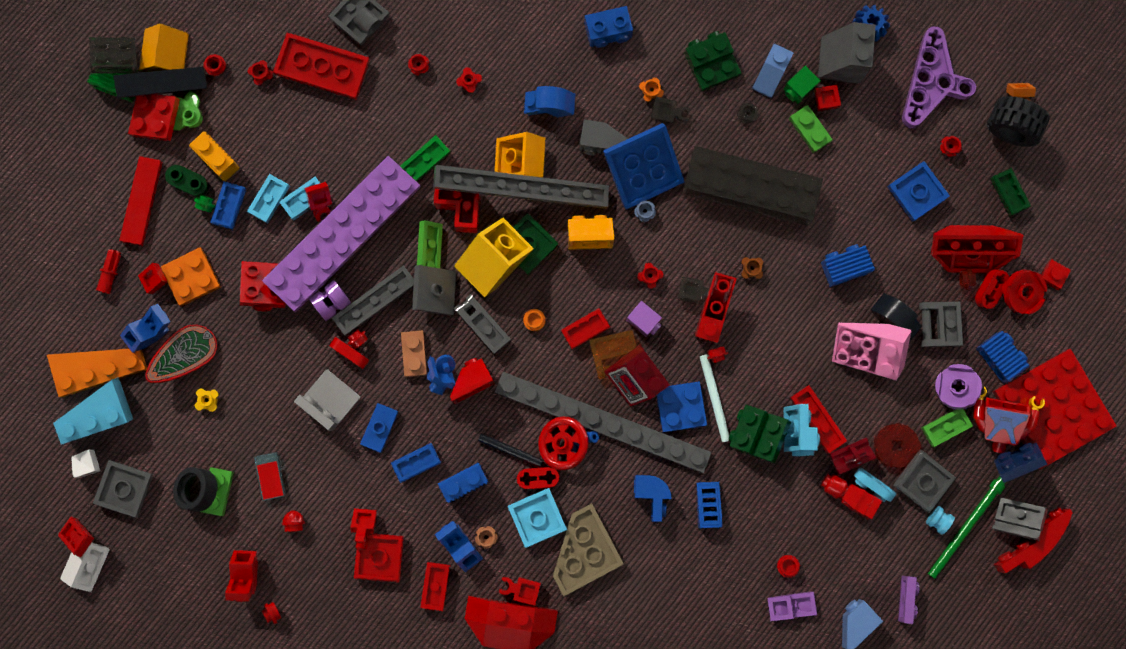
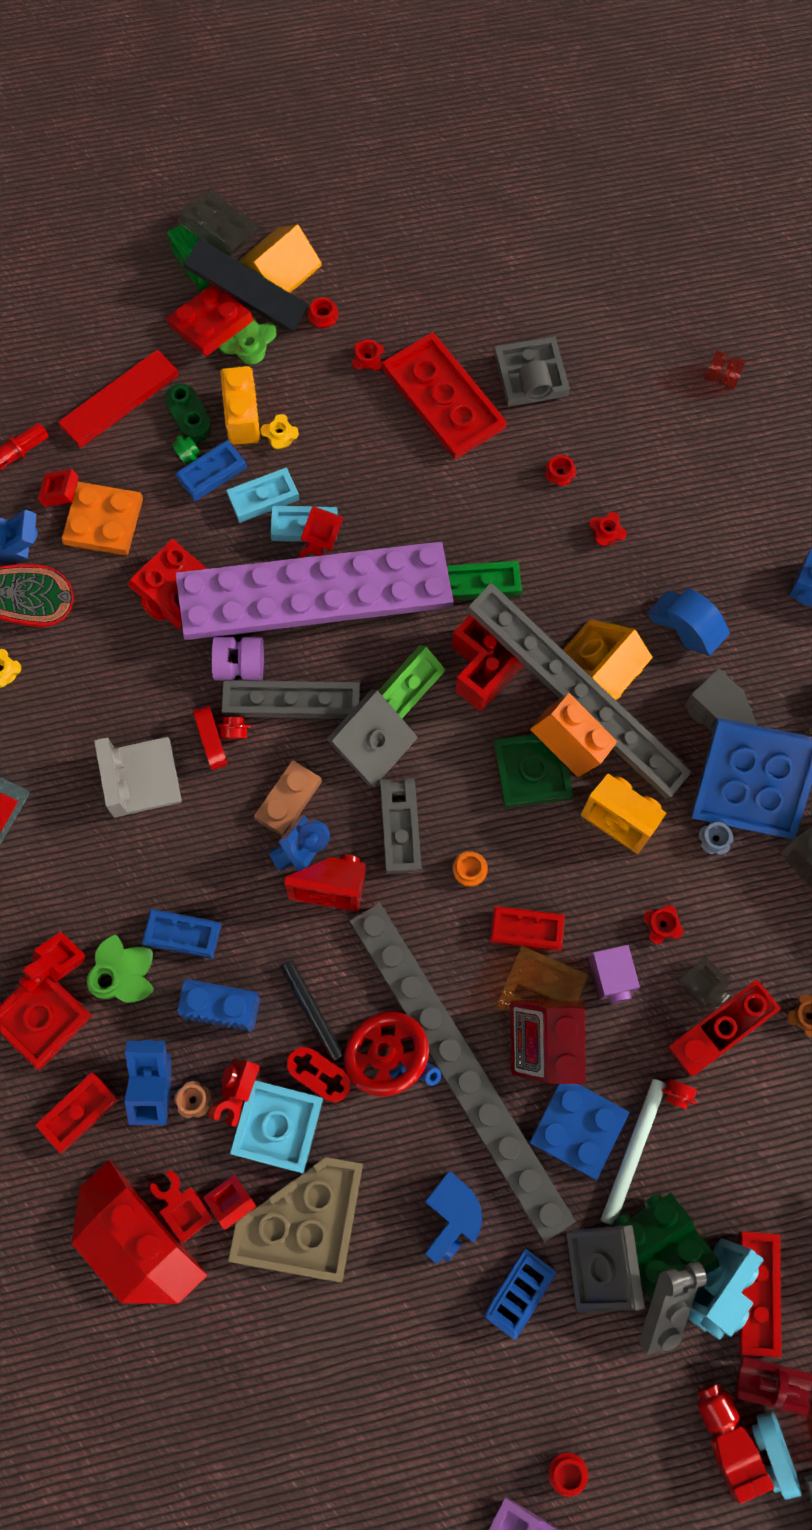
camera: 40 degrees right, 10 degrees down
(251, 160) = (283, 439): none -> yellow plate
(379, 427) = (173, 856): blue plate -> none
(402, 501) = (126, 969): none -> bright green plate
(493, 256) = (477, 749): yellow slope -> none
(503, 514) = (237, 1087): none -> red plate
(536, 212) = (573, 735): none -> orange brick
(542, 569) = (229, 1202): none -> red plate
(740, 463) = (605, 1269): none -> dark grey plate
(782, 457) = (671, 1307): none -> dark grey plate

